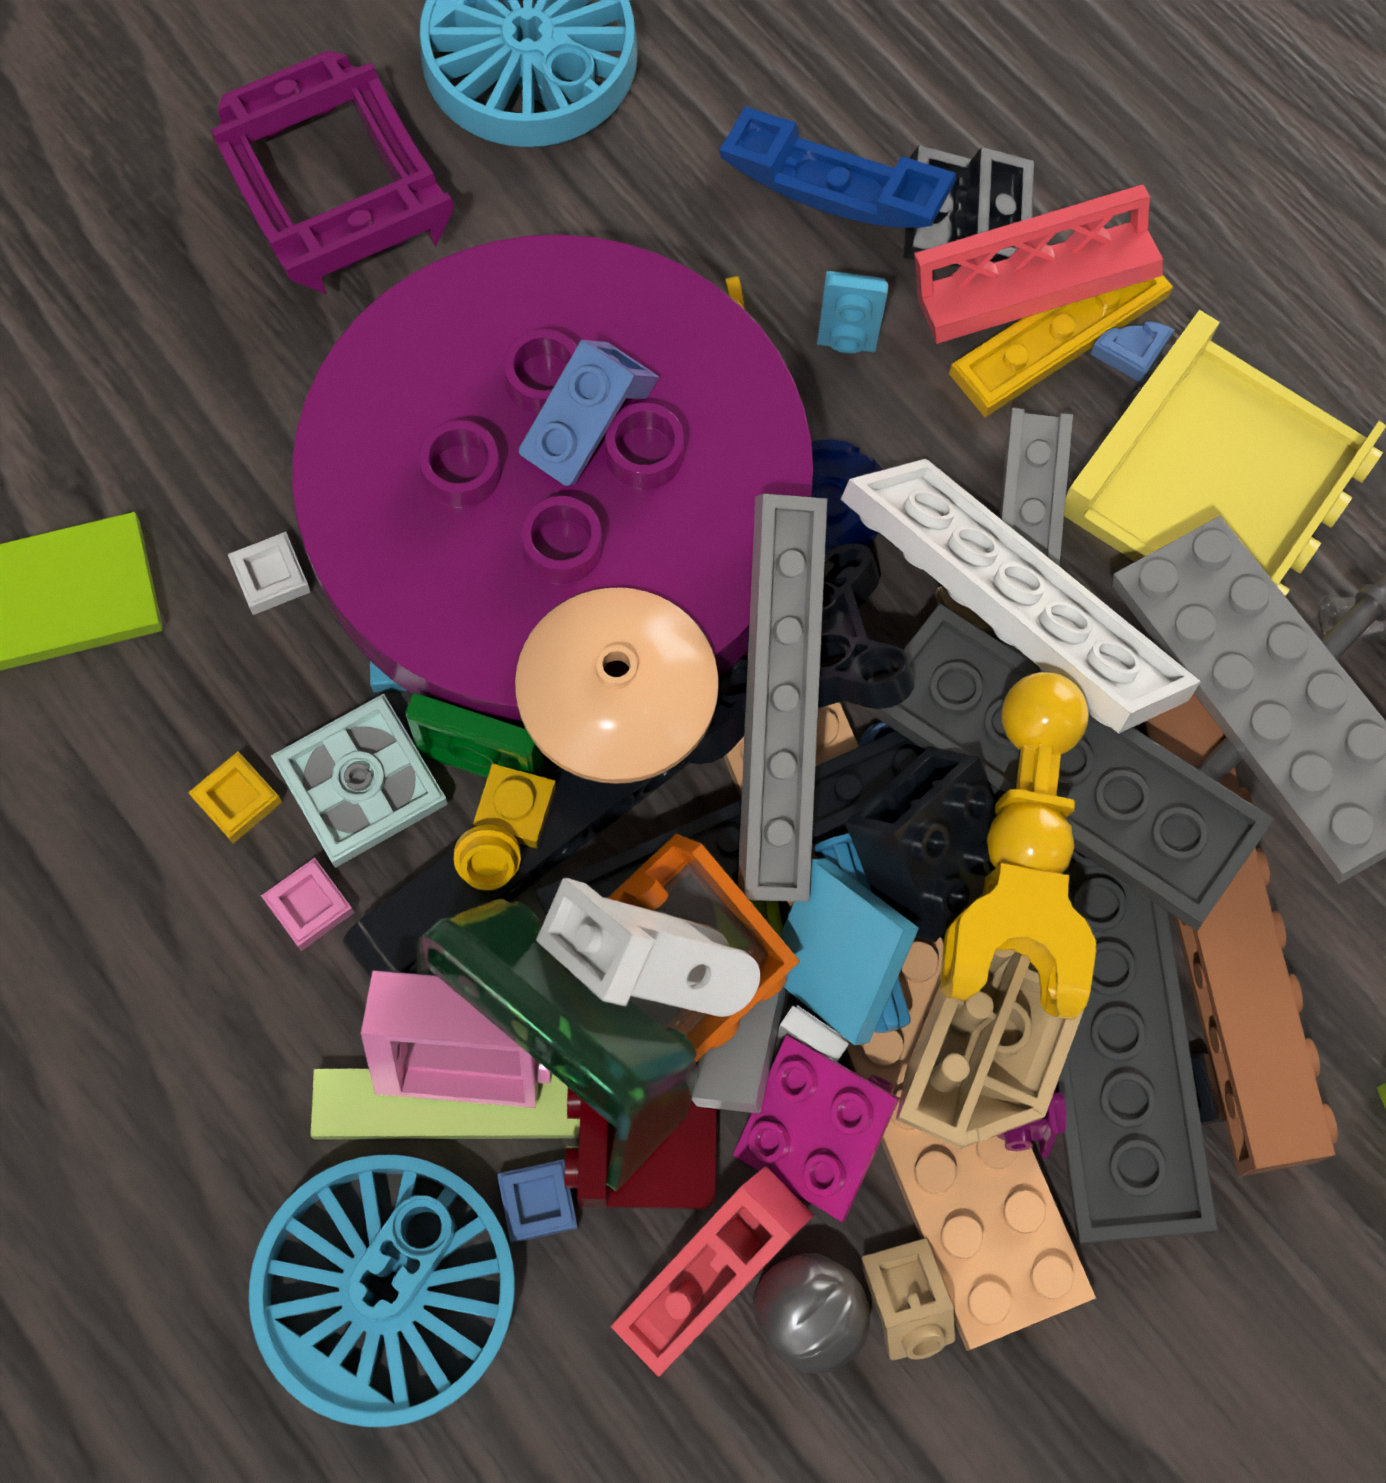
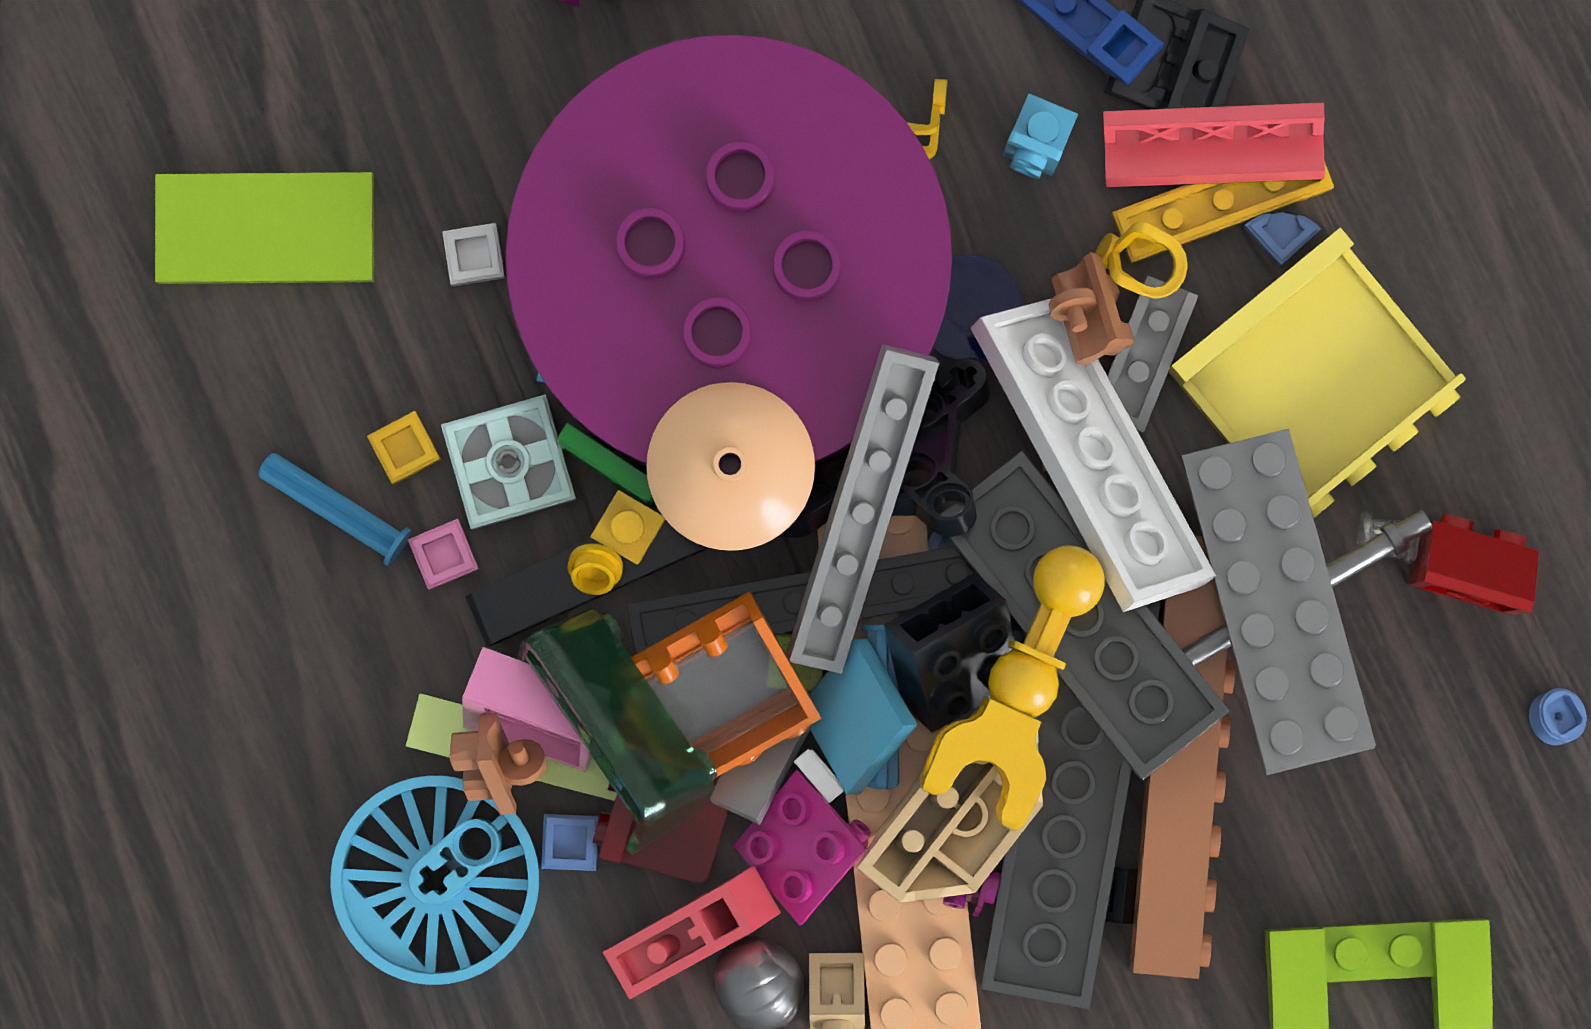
camera: 20 degrees right, 15 degrees up
(168, 882) = (334, 507): none -> dark azure axle
(429, 1112) = (493, 764): none -> nougat hips
(583, 408) = (767, 221): medium blue bracket -> none
(646, 954) = (695, 693): white piece -> none
(962, 397) = (1112, 245): none -> yellow piece
(964, 457) = (1088, 307): none -> nougat hips

